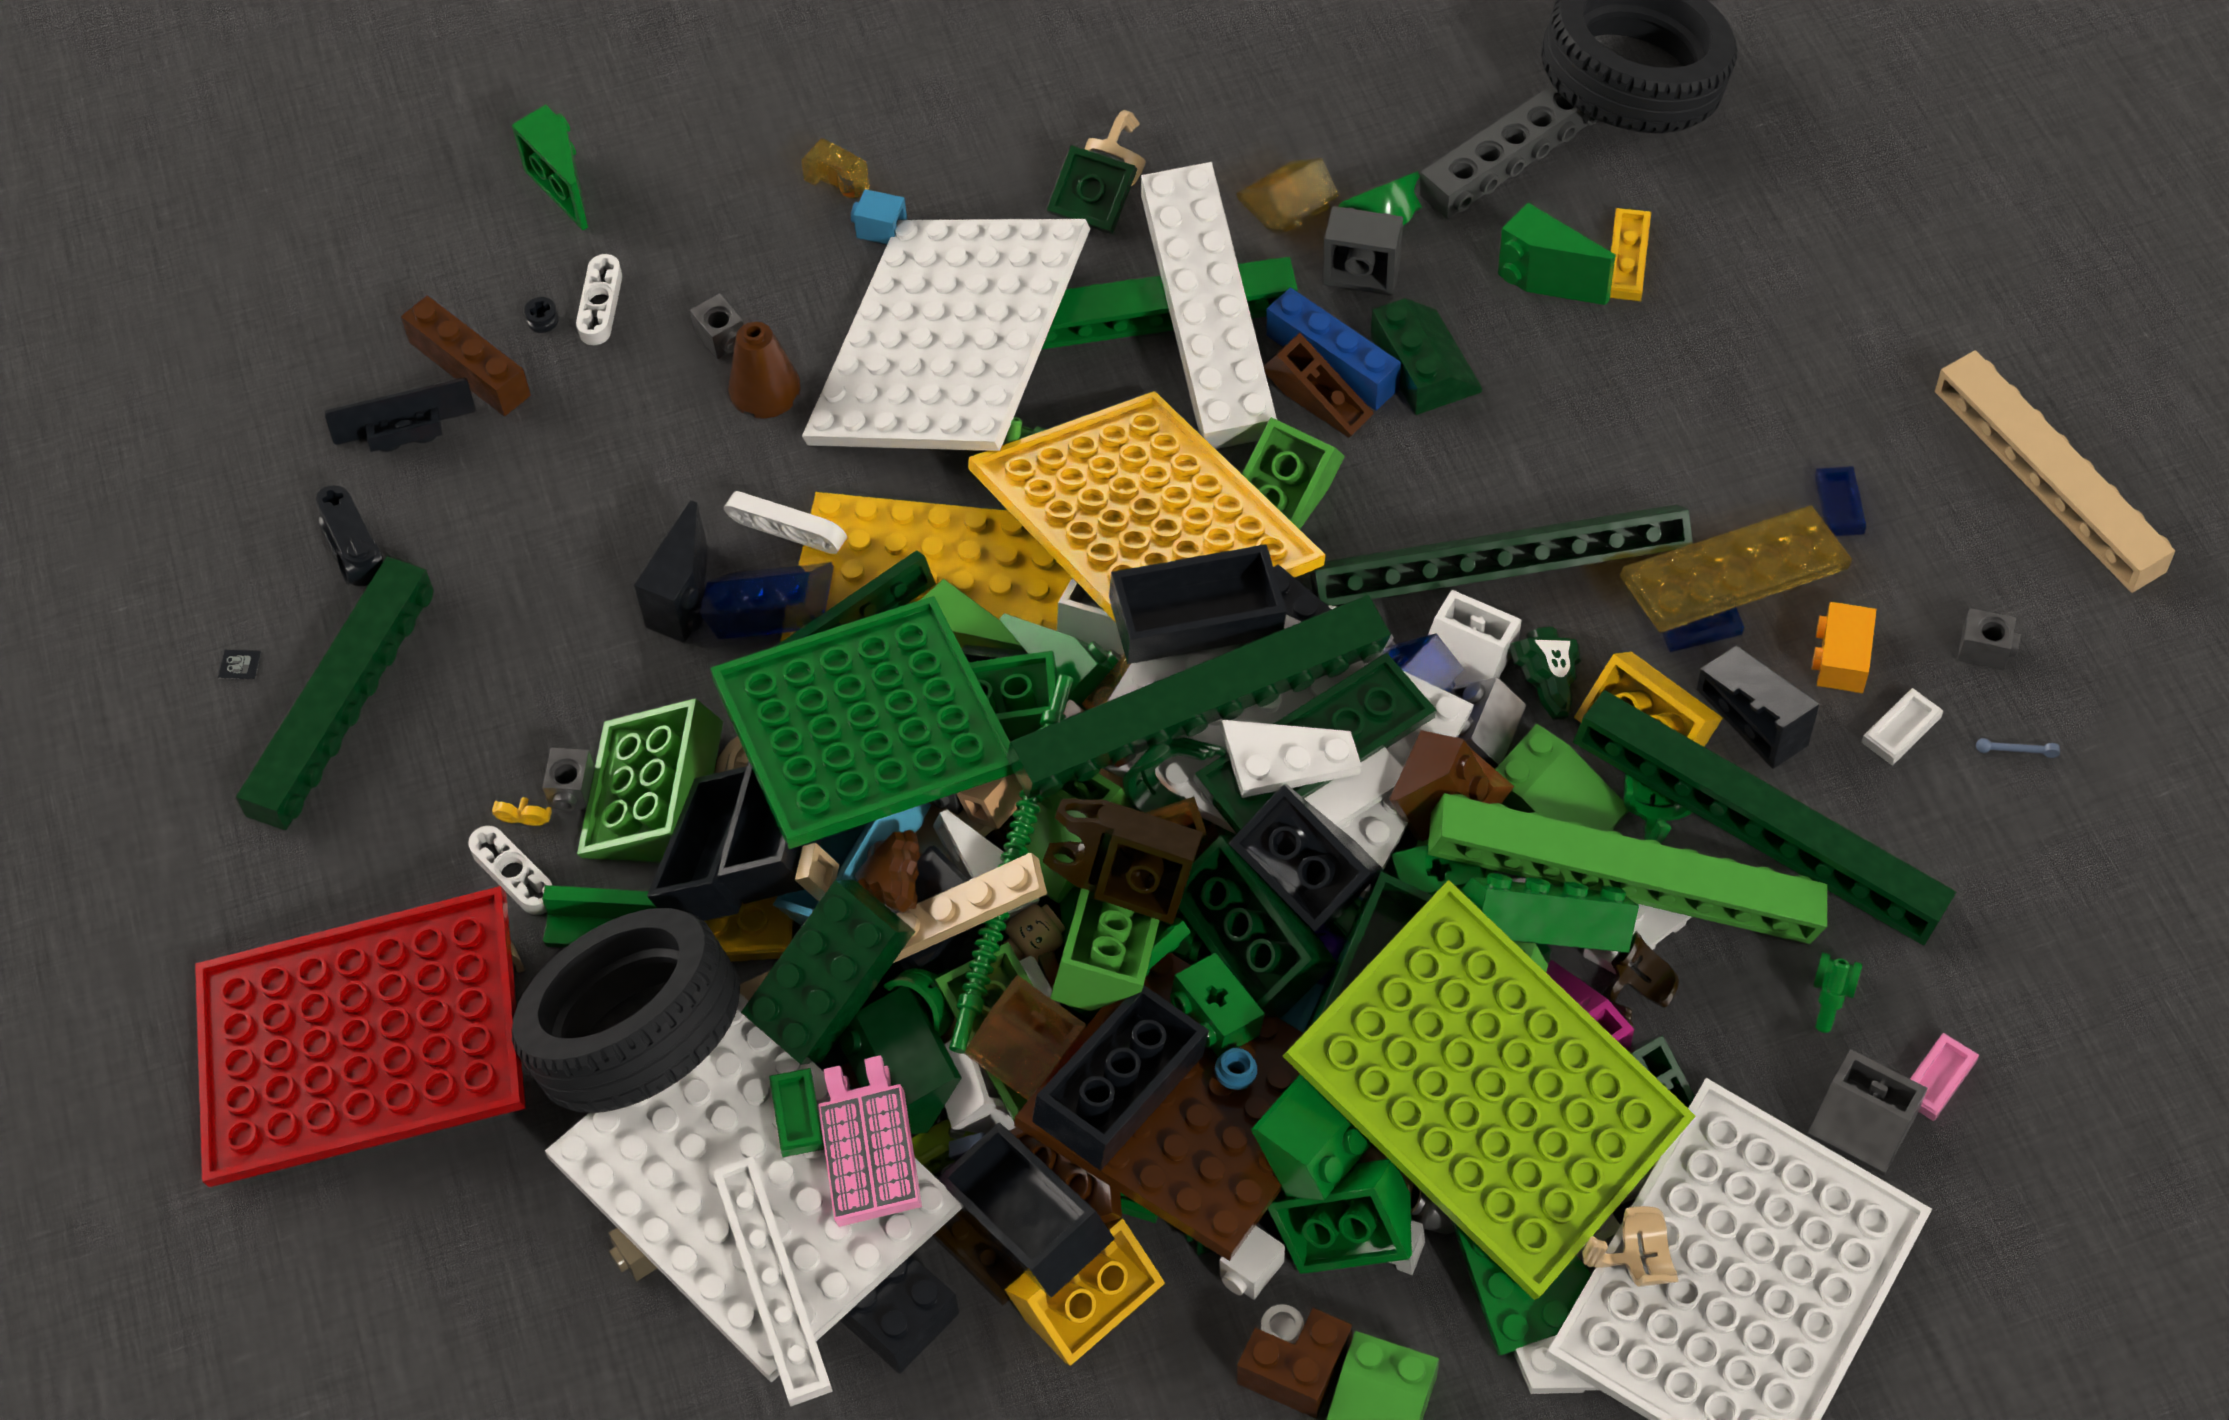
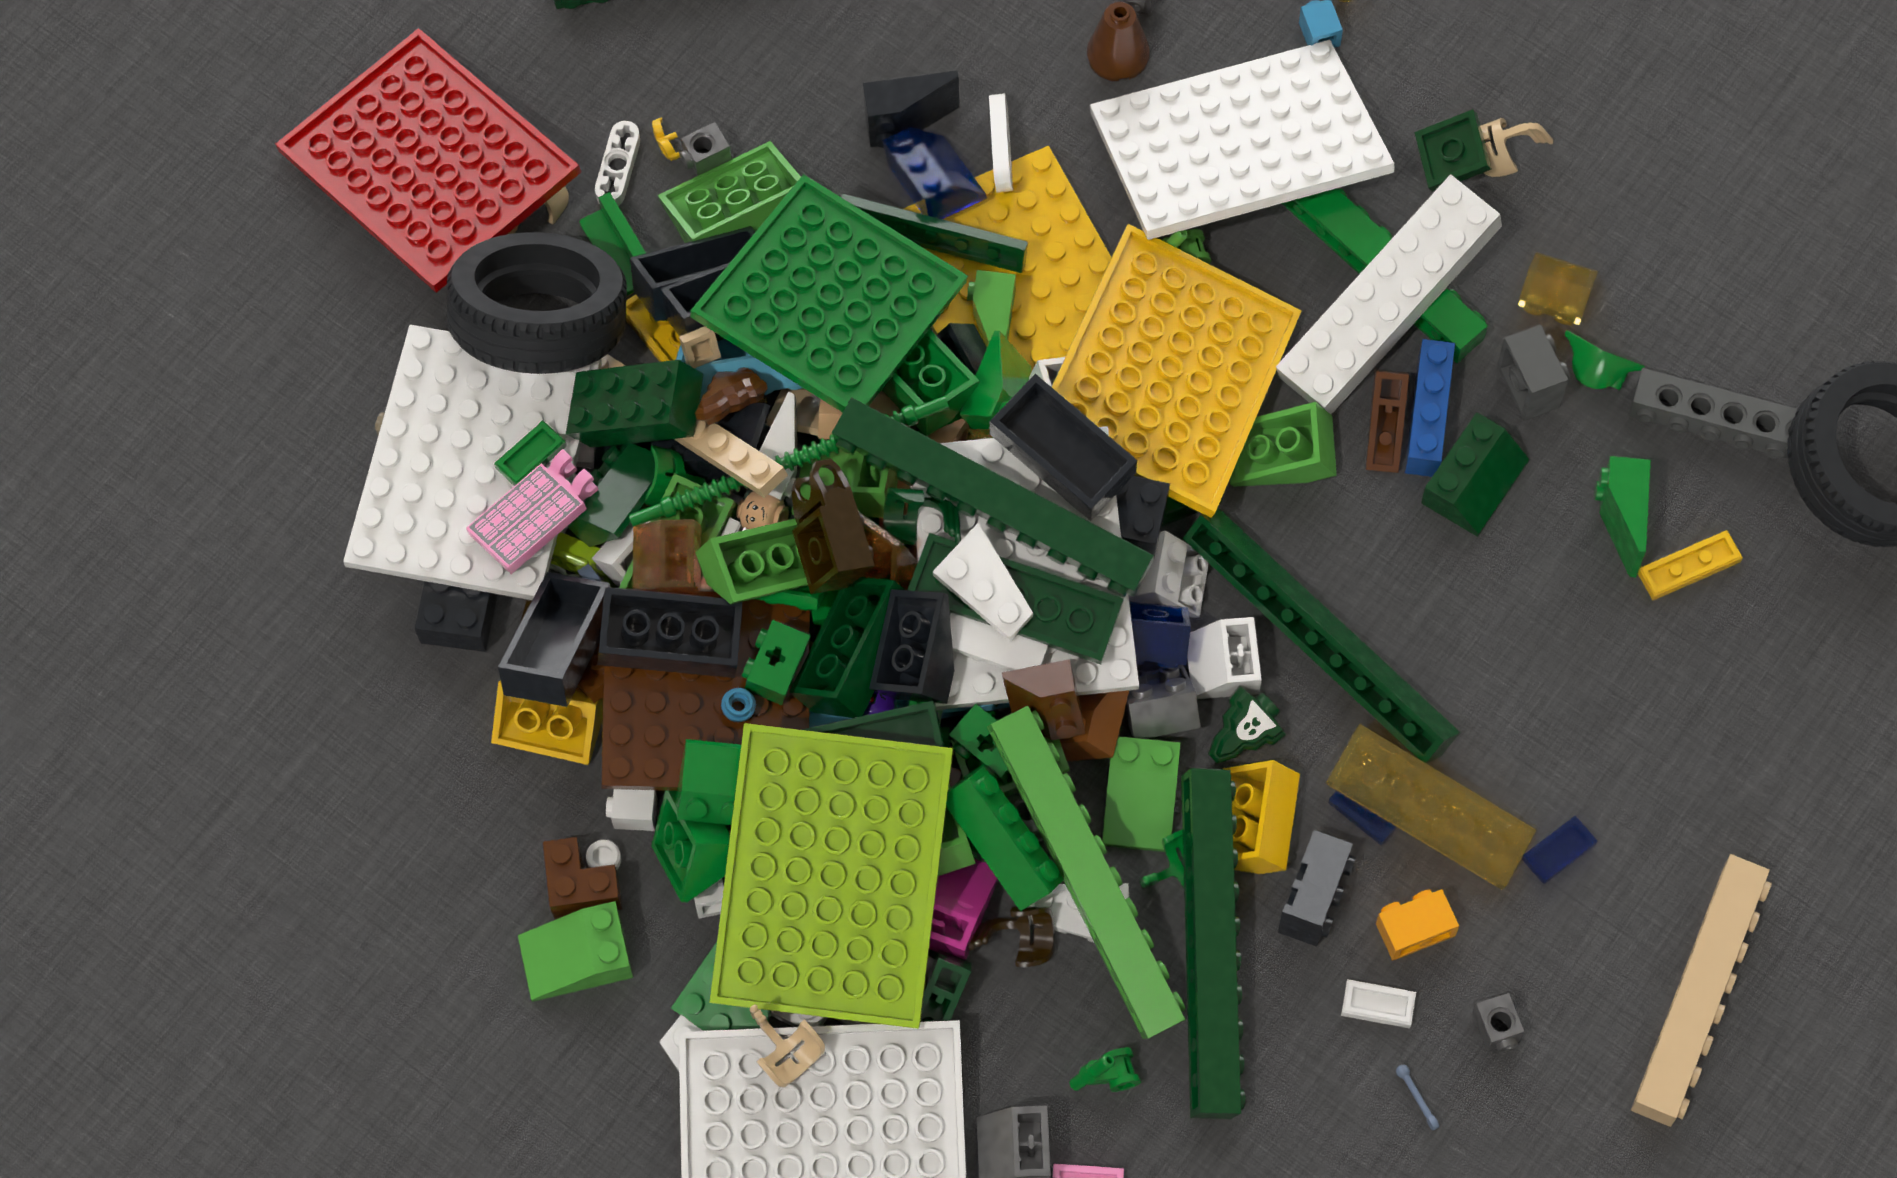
camera: 55 degrees right, 10 degrees up
(772, 1281) = (400, 517): white plate -> none

